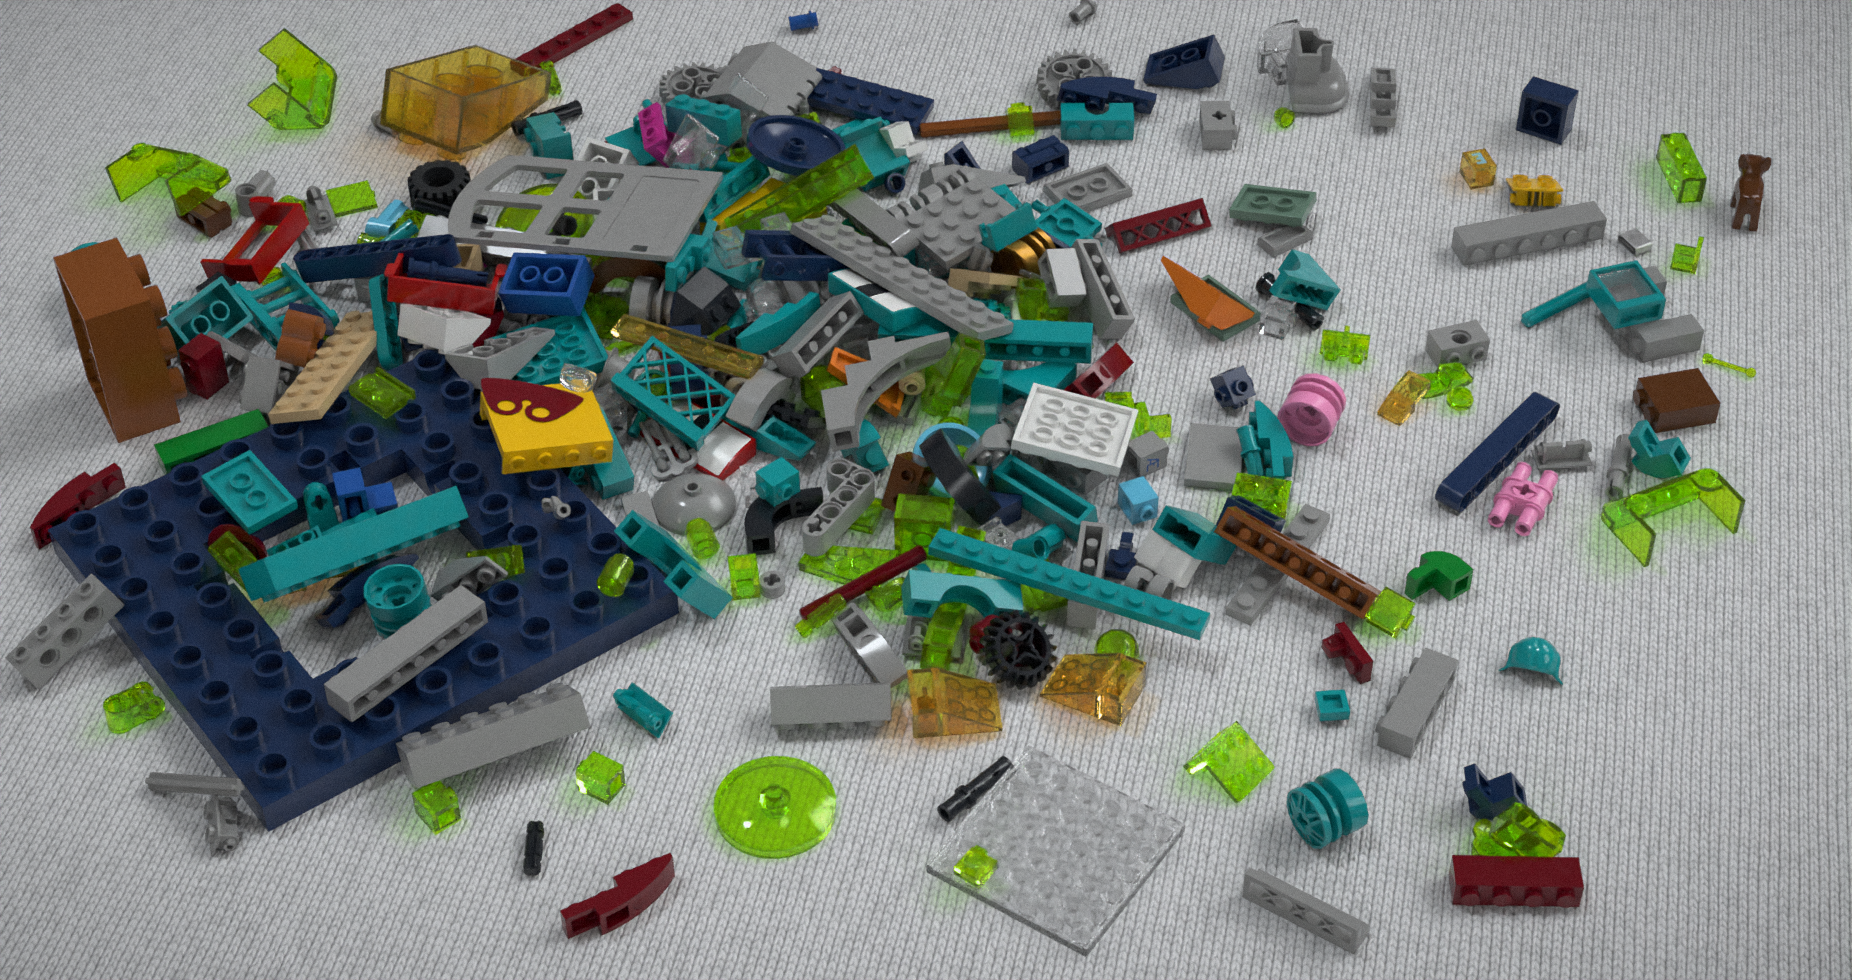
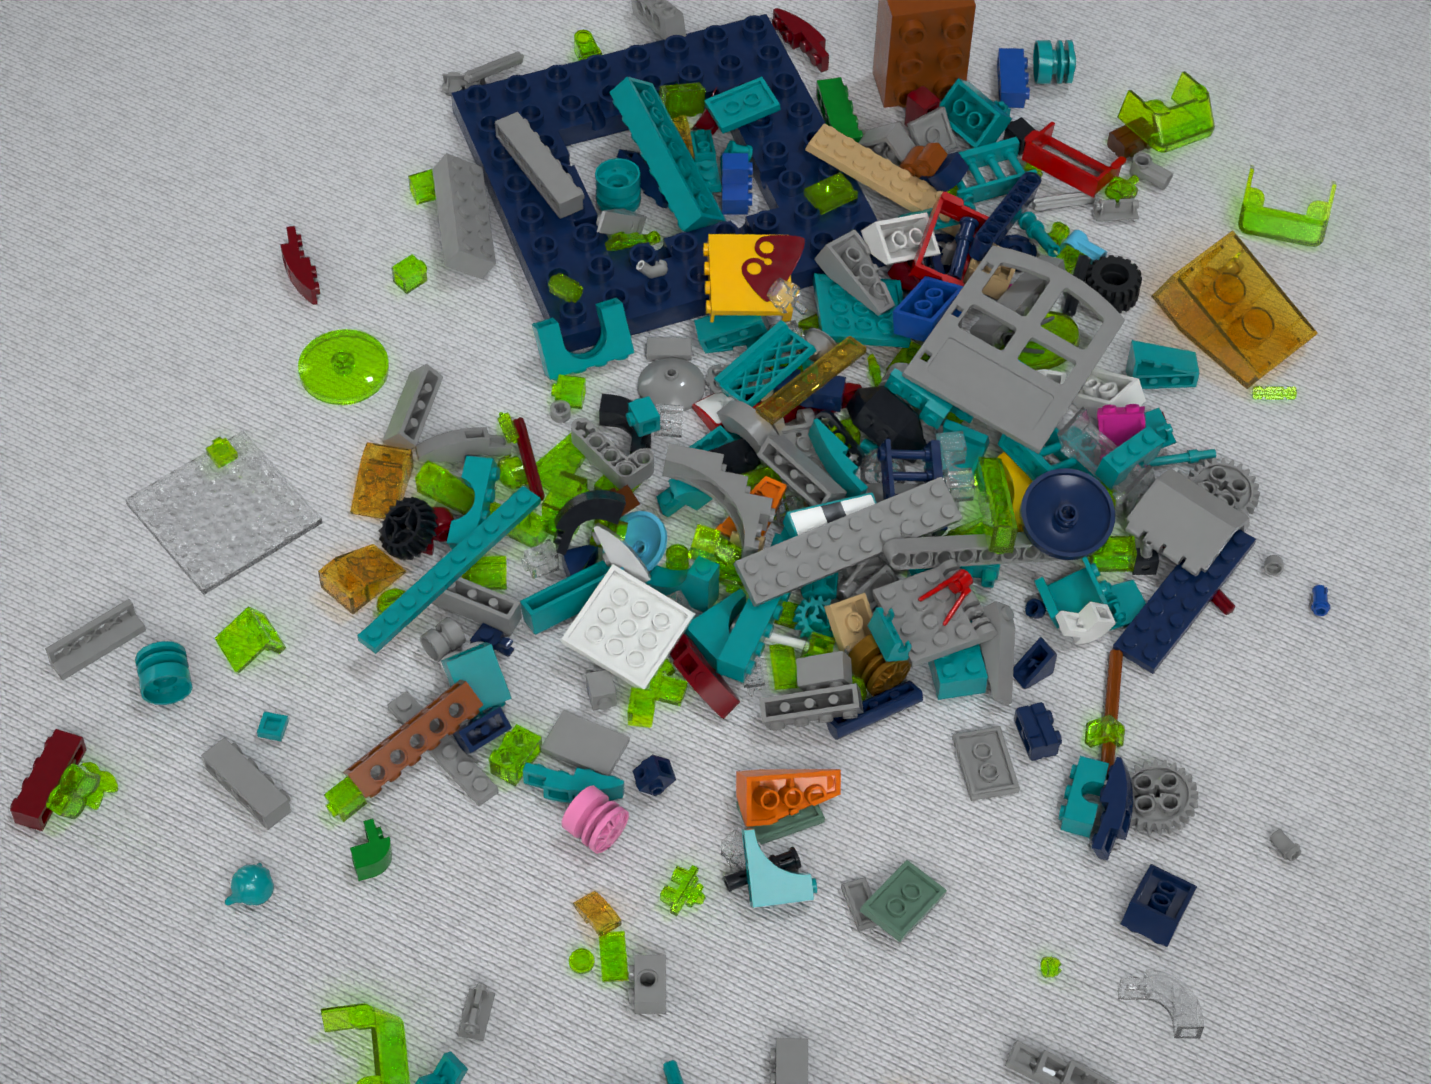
camera: 105 degrees right, 10 degrees up
(351, 198) = (1133, 236): clear neon green piece -> none
(533, 848) = (368, 233): black axle -> none
(563, 112) = (1217, 396): black pin -> none
(578, 36) = (1335, 421): dark red plate -> none
(643, 709) = (469, 304): teal hinge -> none
(701, 538) = (622, 375): clear neon green brick -> none
(924, 189) = (956, 583): none -> red plant
(952, 807) = (297, 473): black pin -> none
(1041, 542) = (519, 575): teal piece -> none
(1066, 221) = (927, 722): teal plate -> none
(1138, 500) = (547, 666): medium azure brick -> none
(1156, 217) = (916, 792): dark red fence -> none
(1217, 125) = (1041, 890): light grey brick -> none
(1250, 450) = (570, 762): teal axle -> none
(1313, 75) = (1104, 1013): light grey piece -> none
(1346, 645) = (326, 756): dark red hinge -> none
(1492, 796) = (131, 794): dark blue brick -> none
(1497, 452) = (501, 962): dark blue beam -> none
(1523, 498) = (434, 956): bright pink pin -> none
(1617, 473) = (434, 1048): light grey pin -> none

